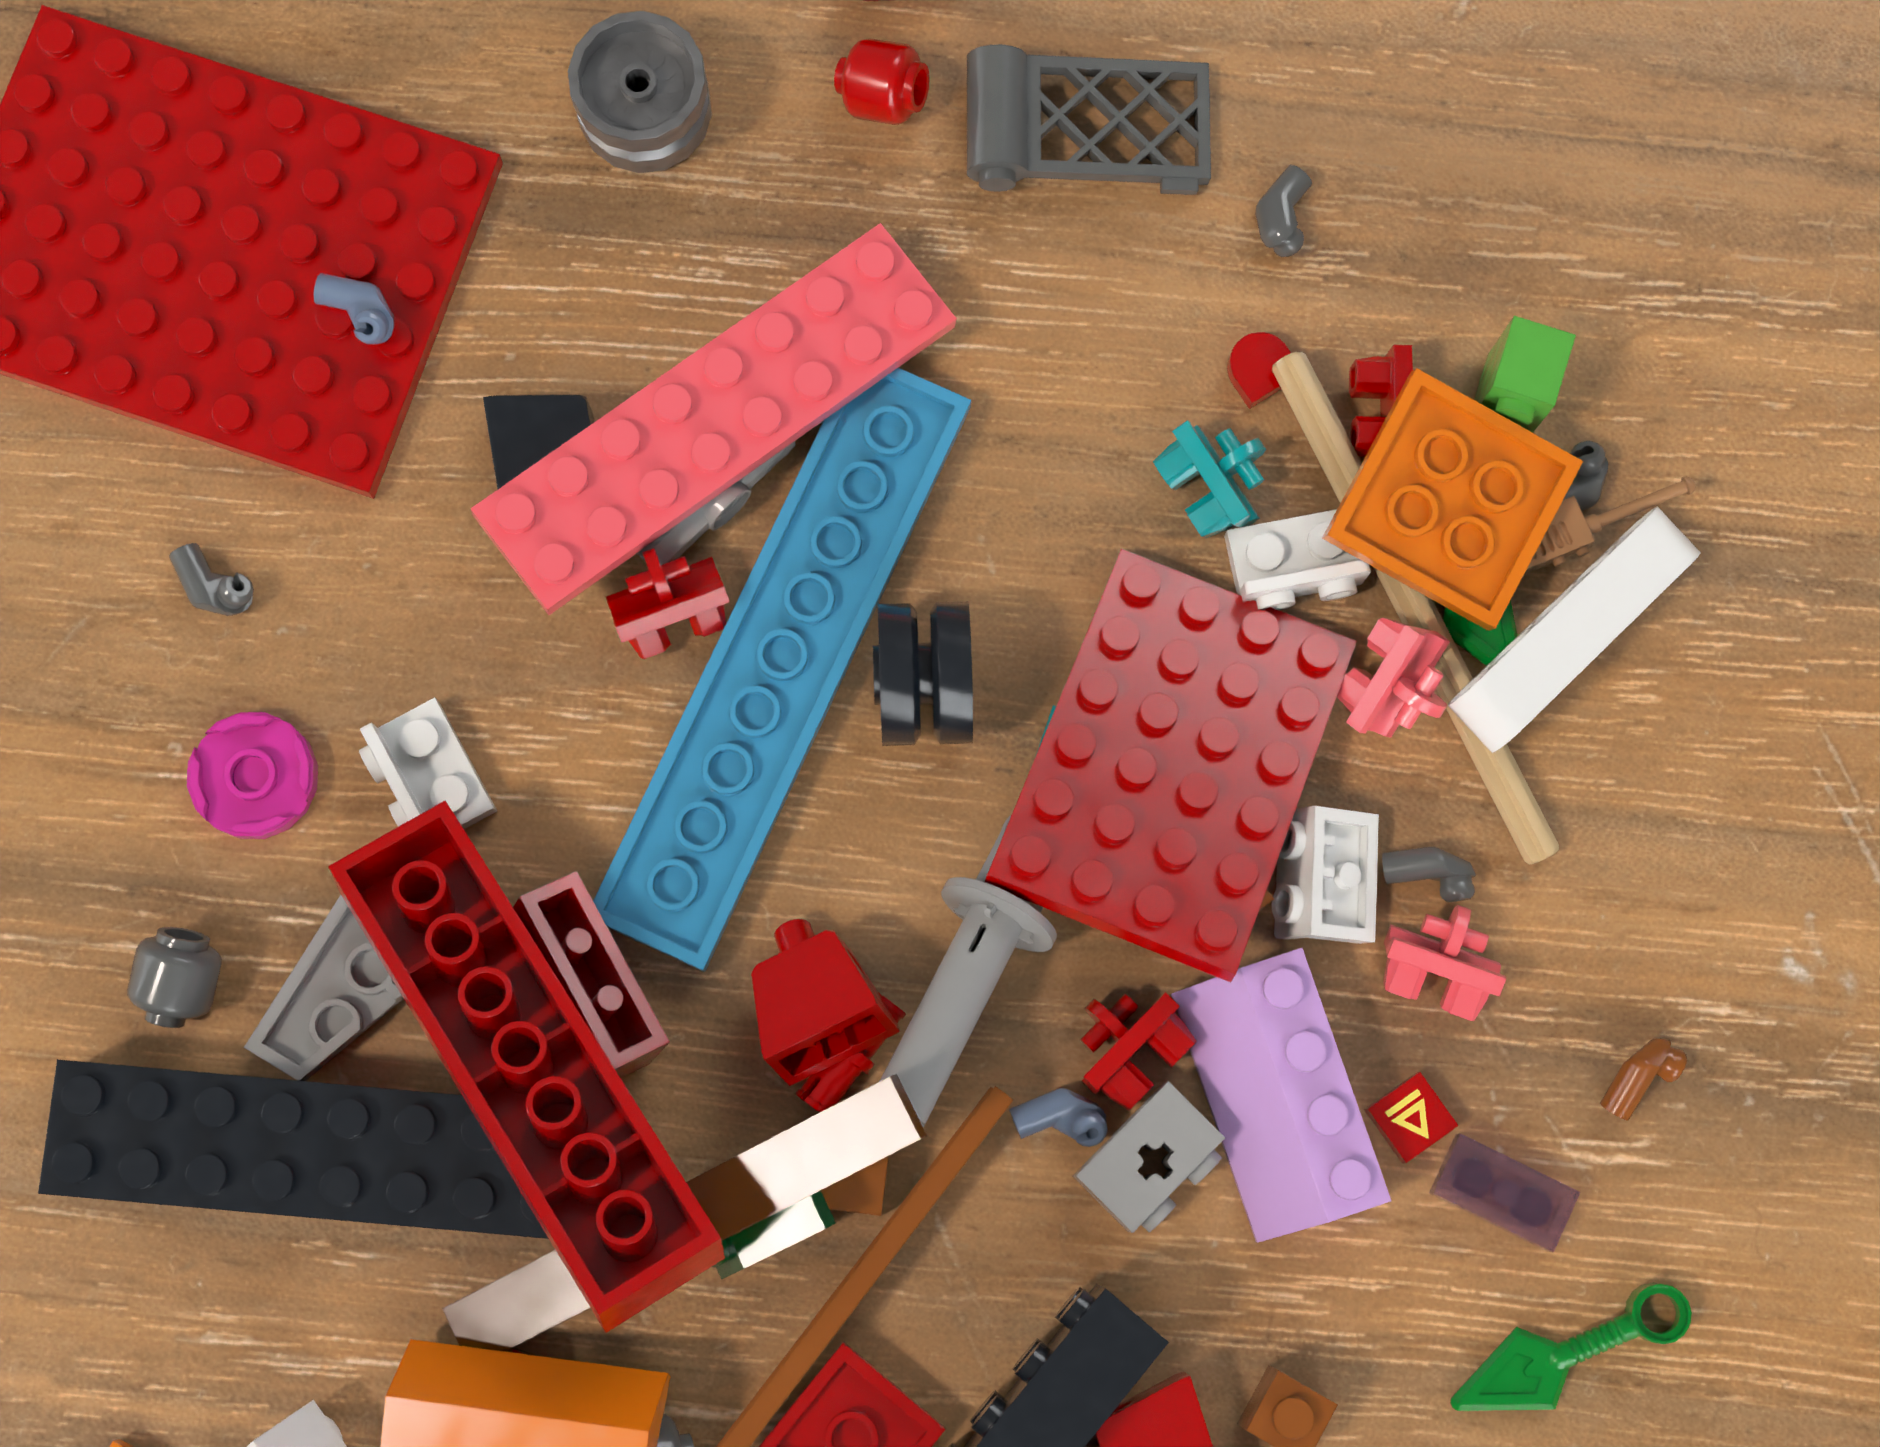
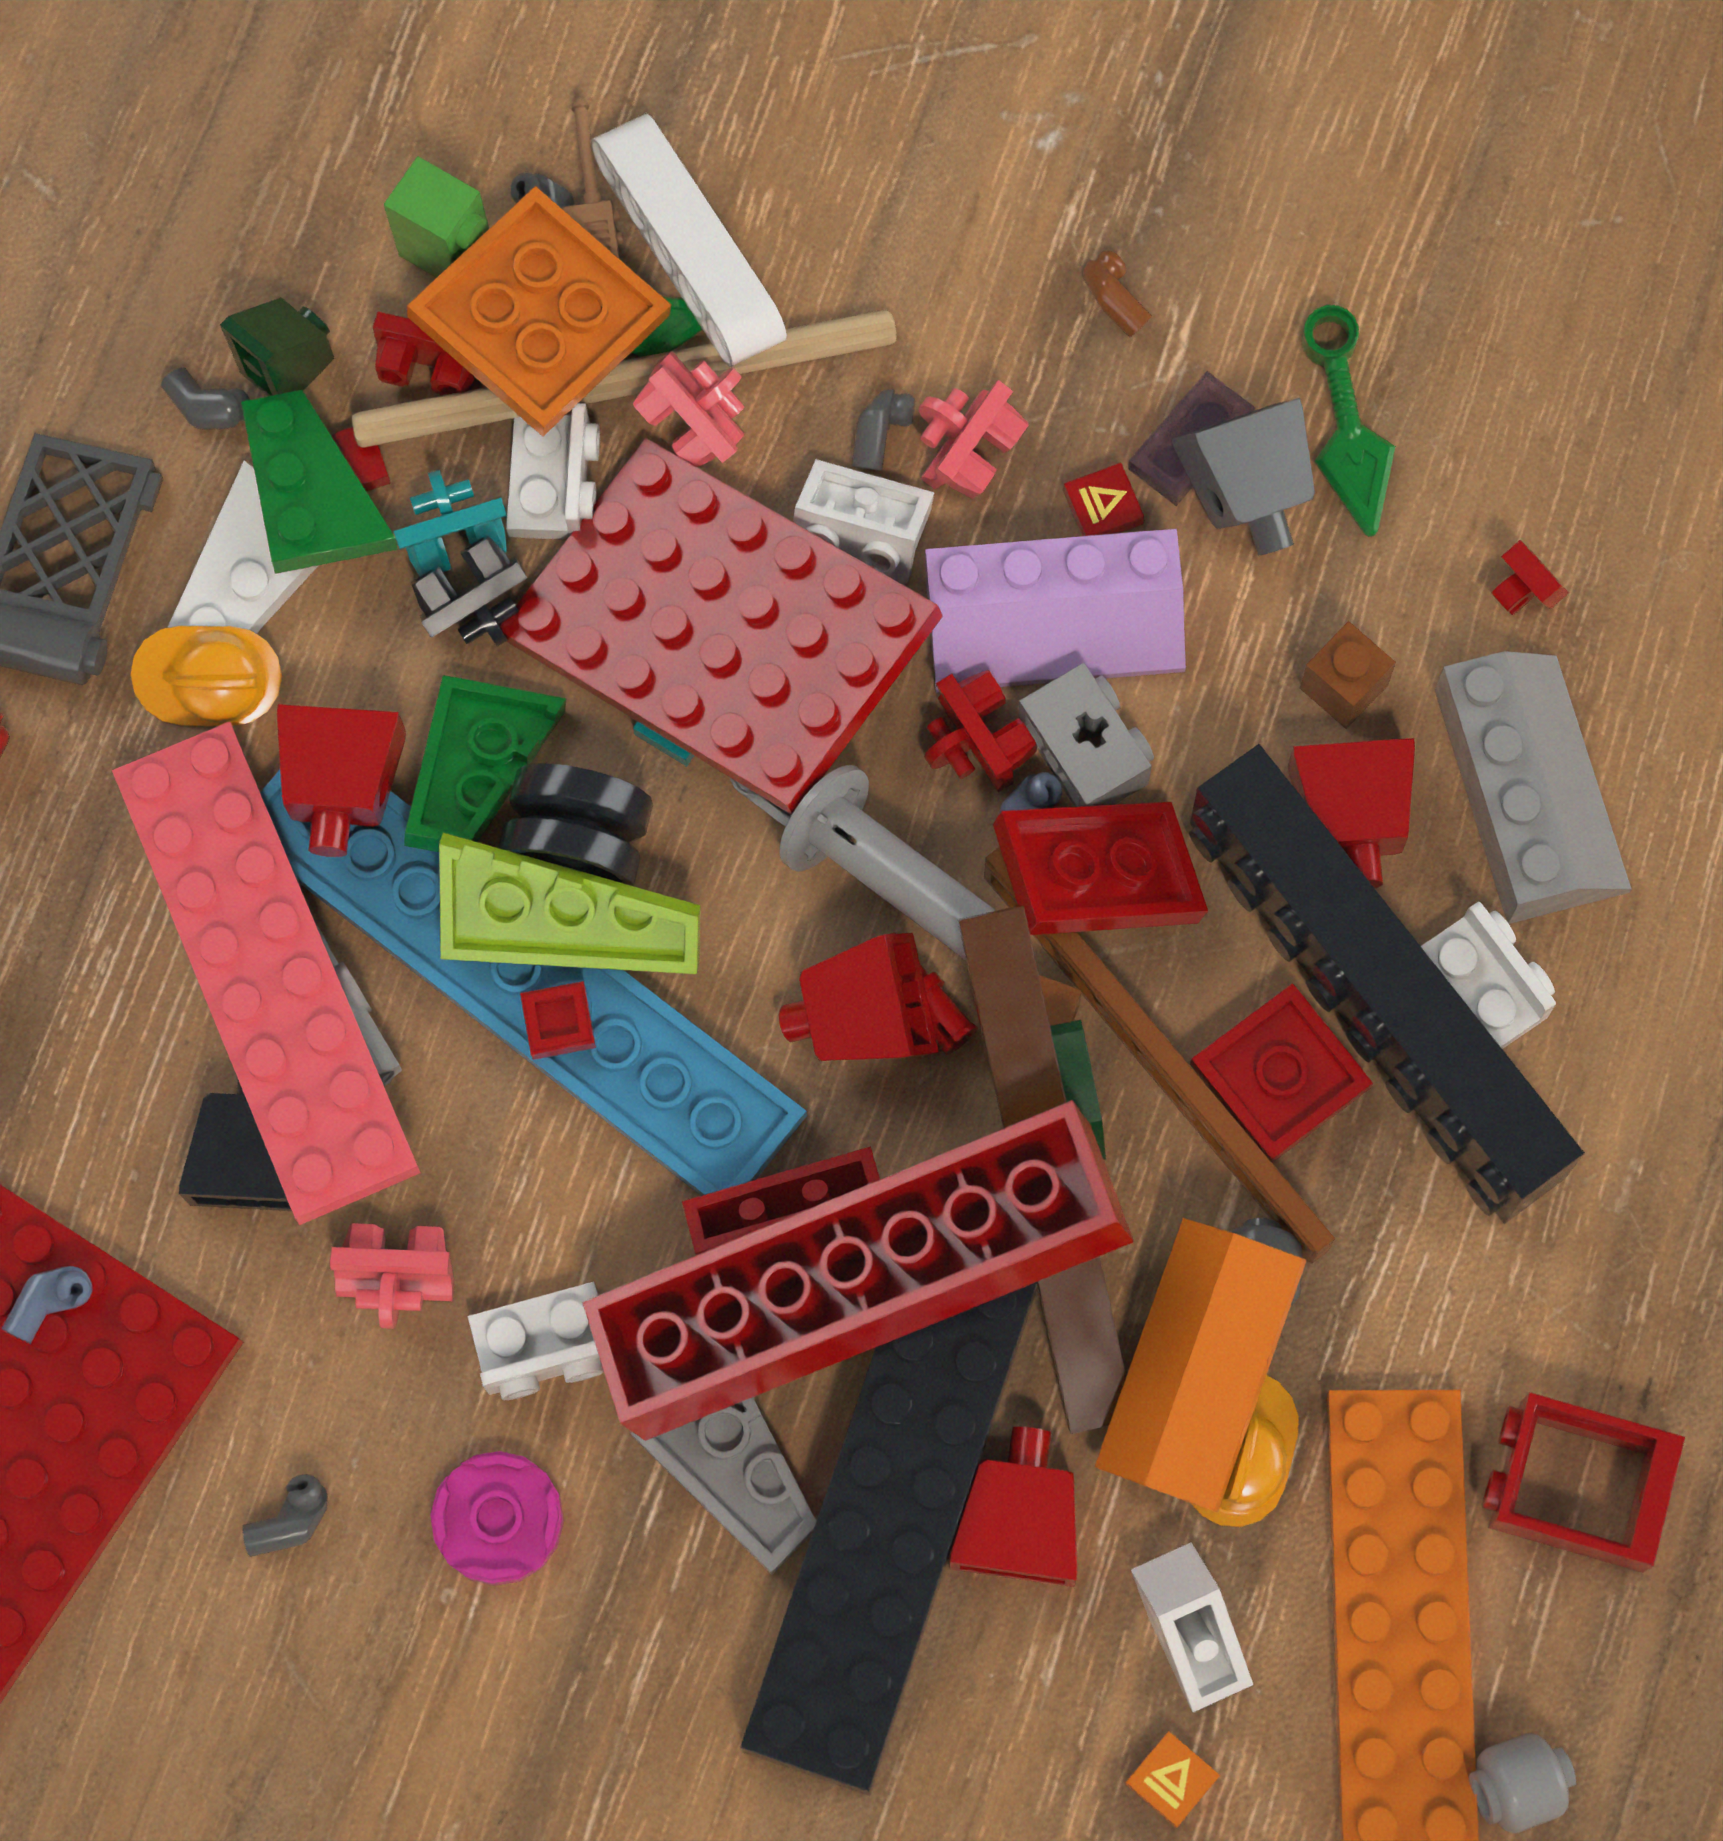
camera: 70 degrees left, 5 degrees down
(174, 976) = (682, 1629): dark grey head -> none
(346, 1277) = (1020, 1516): none -> red torso
(466, 642) = (391, 1277): none -> coral hips
(665, 597) = (431, 1063): red hips -> none
(735, 707) = (558, 1020): none -> red tile
(829, 672) = (550, 915): none -> lime wing
(929, 430) = (337, 769): none -> red torso
(990, 557) = (472, 757): none -> green wing
(1006, 288) = (206, 675): none -> light orange piece
(1012, 1204) = (1100, 867): none -> red plate
(1123, 296) = (235, 570): none -> white wing
(1167, 529) = (445, 606): none -> hips
(1213, 327) = (307, 489): none -> green wing
(1352, 262) = (278, 346): none -> dark green slope
(1481, 1265) = (1252, 471): none -> torso

